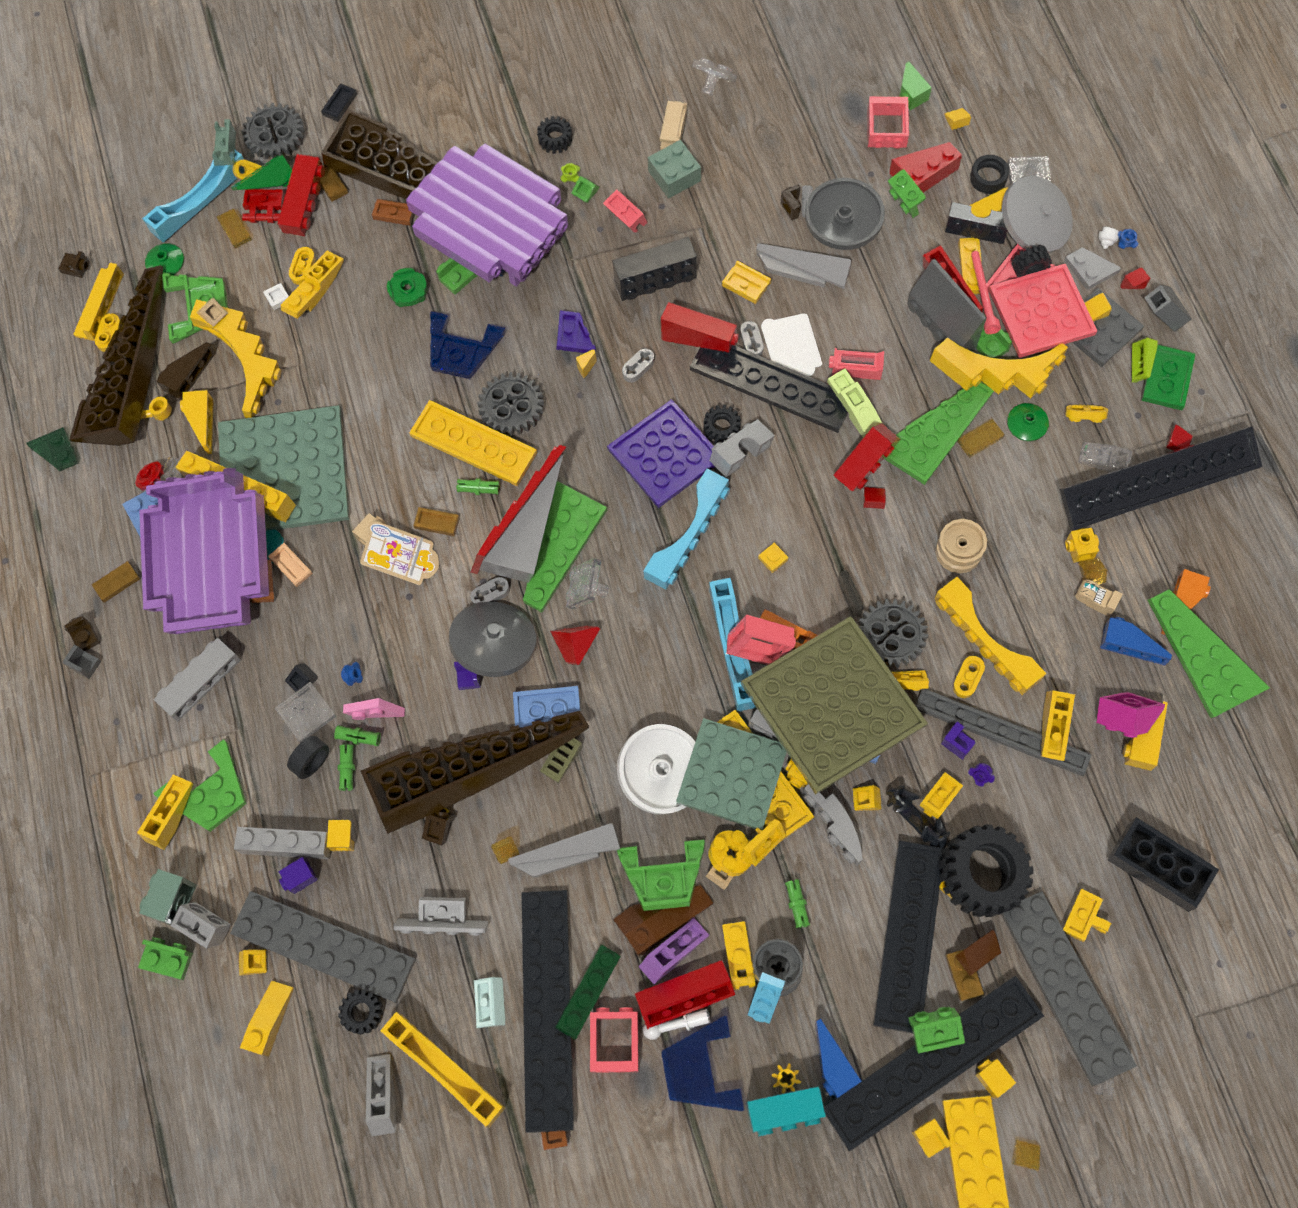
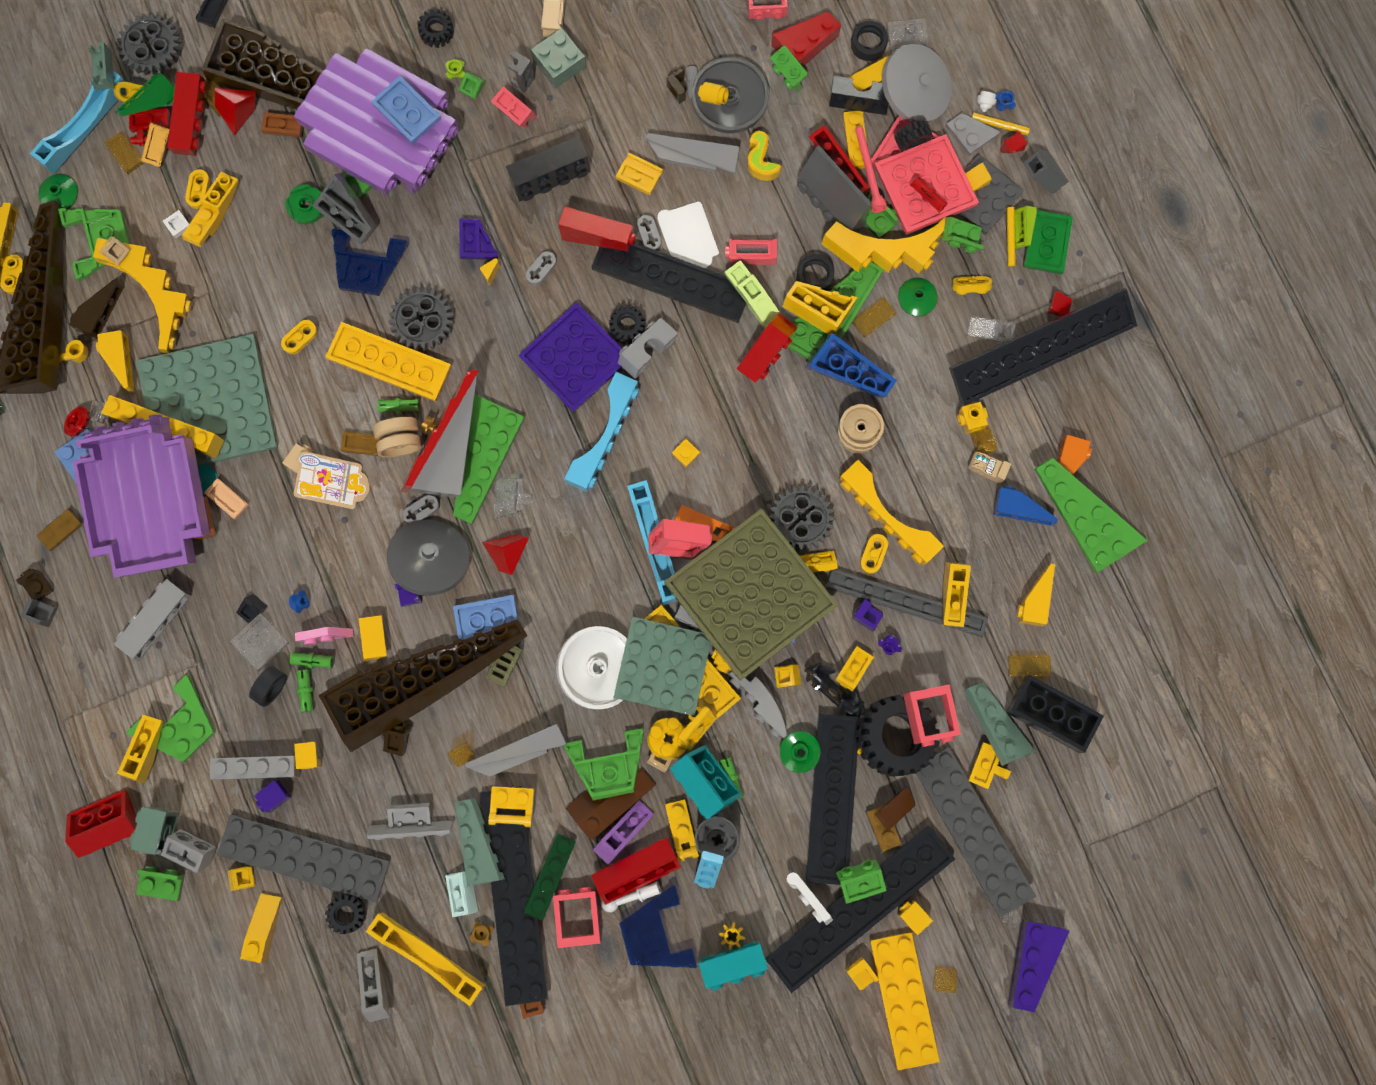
camera: 10 degrees left, 10 degrees up
(111, 888) = (100, 824): none -> red slope
(266, 221) = (155, 145): none -> tile
(348, 191) = (234, 106): none -> red slope
(383, 411) = (298, 336): none -> yellow plate
(424, 718) = (372, 638): none -> yellow hinge
(444, 289) = (345, 209): none -> dark grey wedge
(473, 514) = (397, 437): none -> tan wheel
(500, 1050) = (476, 937): none -> pearl gold plate
(503, 508) = (428, 425): none -> pearl gold plate
(511, 955) = (477, 854): none -> sand green wing
(518, 200) = (406, 110): none -> medium blue plate
(557, 902) = (511, 799): none -> yellow plate
(637, 177) = (523, 70): none -> dark grey hinge
(769, 901) = (705, 782): none -> teal brick
(828, 209) = (713, 93): none -> yellow brick
(835, 1067) = (774, 922): blue slope -> none
(866, 281) = (755, 161): none -> yellow animal
(874, 498) = (777, 386): red slope -> none
(875, 869) = (789, 752): none -> green dish
(876, 1043) = (808, 898): none -> white plate
(924, 377) = (819, 260): none -> black tyre
(924, 420) = (819, 307): none -> yellow wedge
(950, 480) = (846, 365): none -> blue wedge
(1008, 857) = (915, 719): none -> coral window
(1035, 309) = (939, 204): none -> red pin
(1078, 362) = (962, 235): none -> bright green bracket
(1101, 878) = (1000, 730): none -> sand green wing
(1122, 261) = (1001, 124): none -> yellow bar
(1127, 809) = (1029, 665): none -> clear yellow tile
(1128, 713) = (1020, 577): dark pink slope -> none
(1129, 368) = (1011, 236): none -> yellow bar
(1131, 1143) = (1034, 963): none -> dark purple wedge

